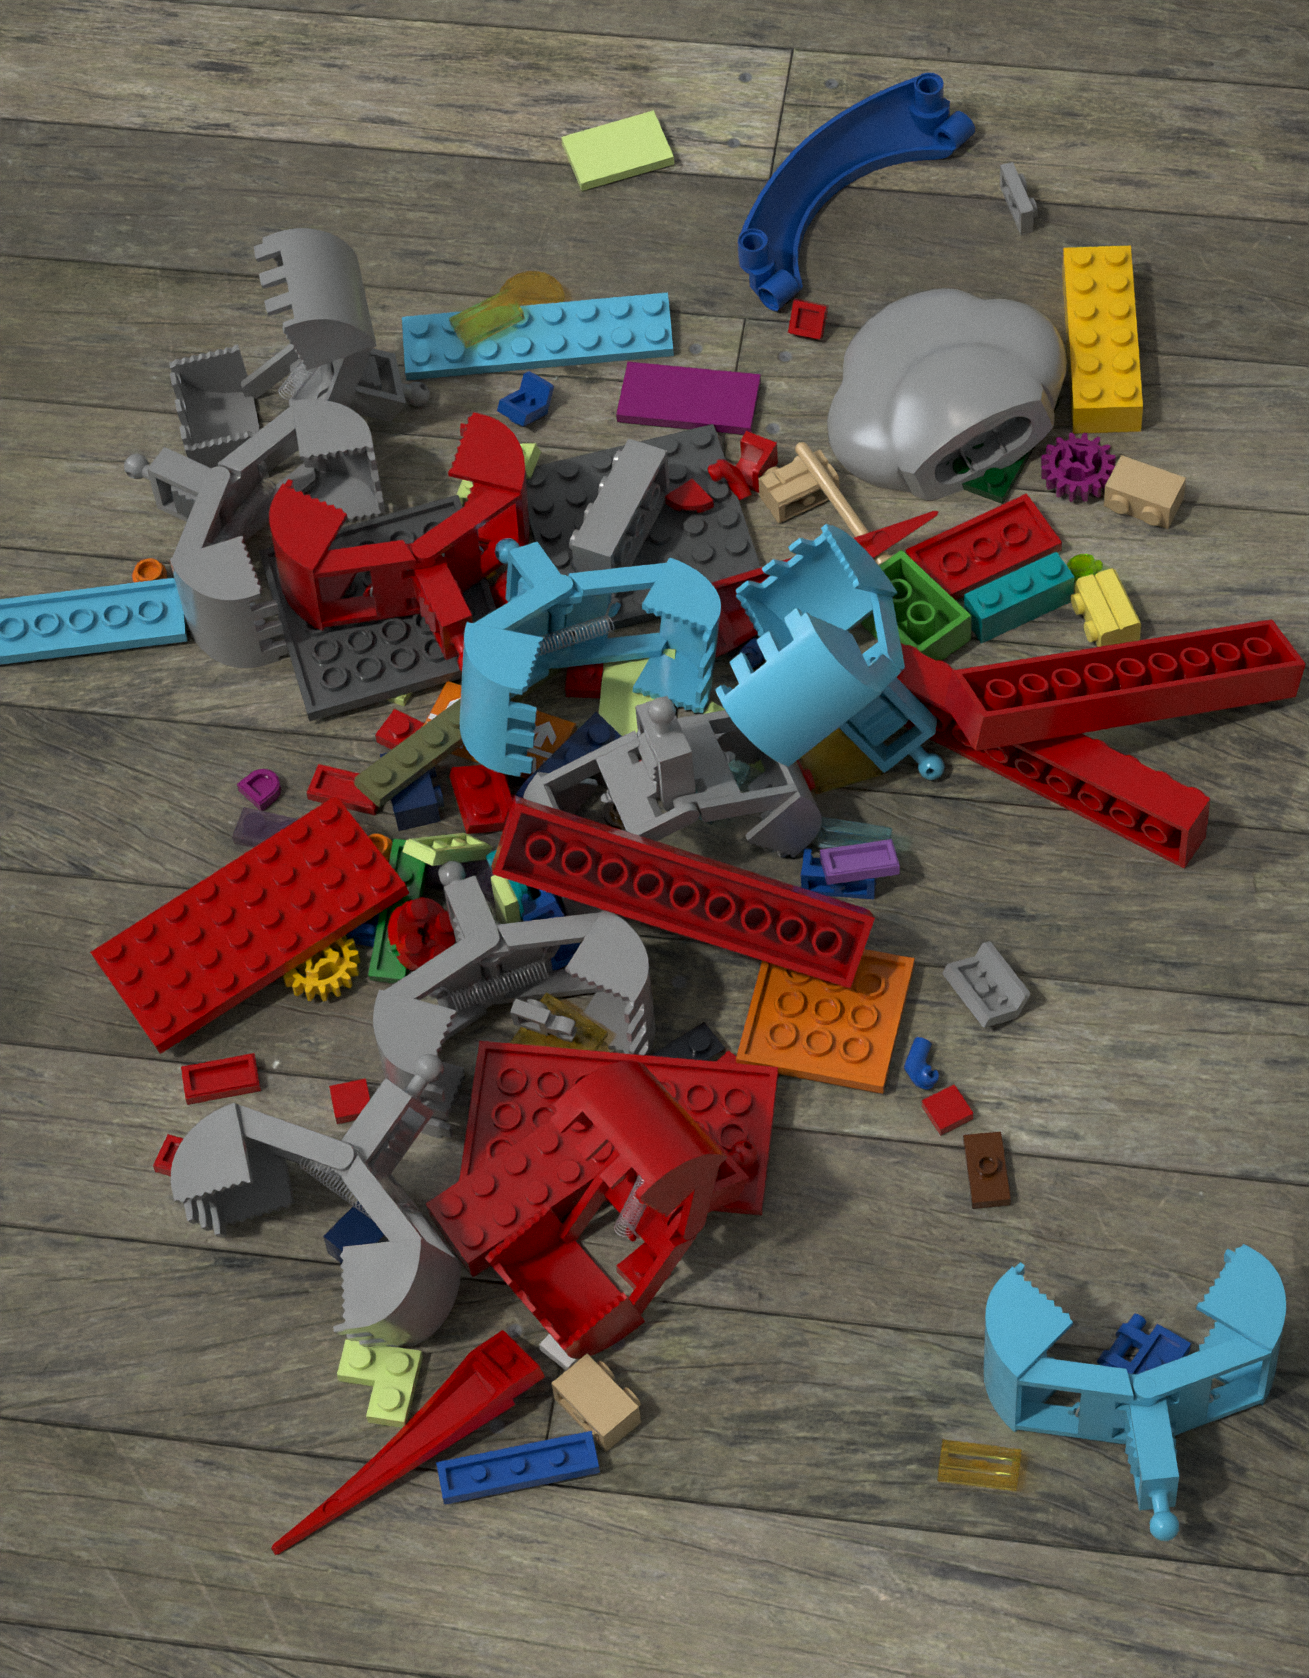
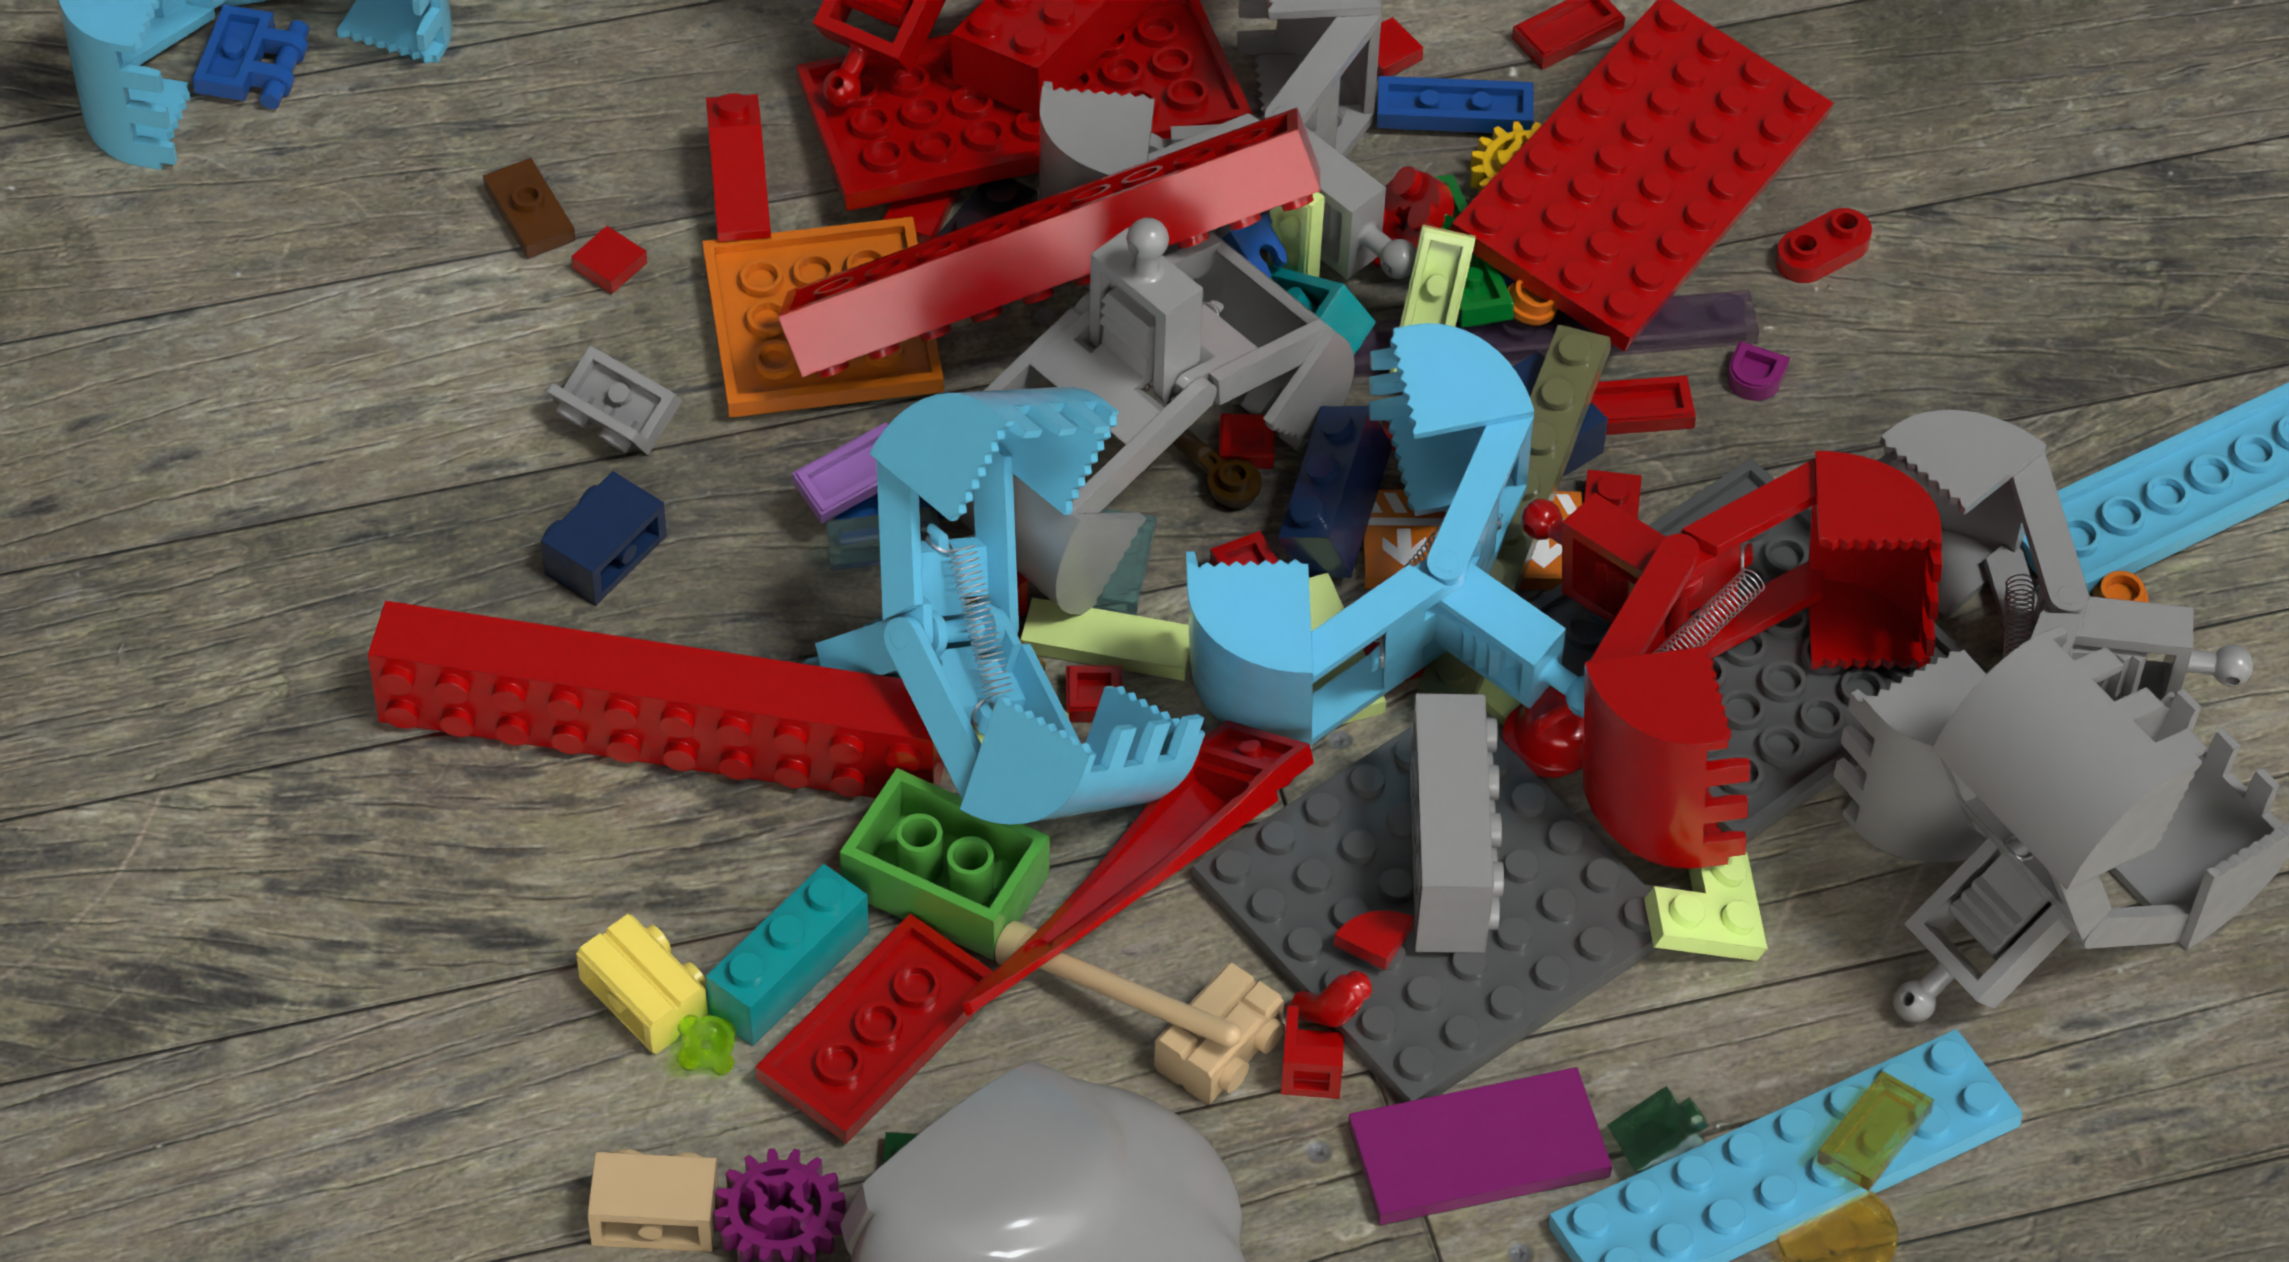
camera: 150 degrees right, 5 degrees down
(162, 859) = (1832, 243): none -> red plate
(330, 1033) = (1453, 104): none -> blue plate
(529, 401) = (1731, 1032): blue bracket -> none
(591, 366) = (1659, 1129): none -> clear green bracket
(837, 1128) = (738, 167): none -> red slope
(916, 1065) = (668, 294): blue arm -> none
(1028, 894) = (603, 537): none -> dark blue brick
(1123, 684) = (547, 772): red brick -> none

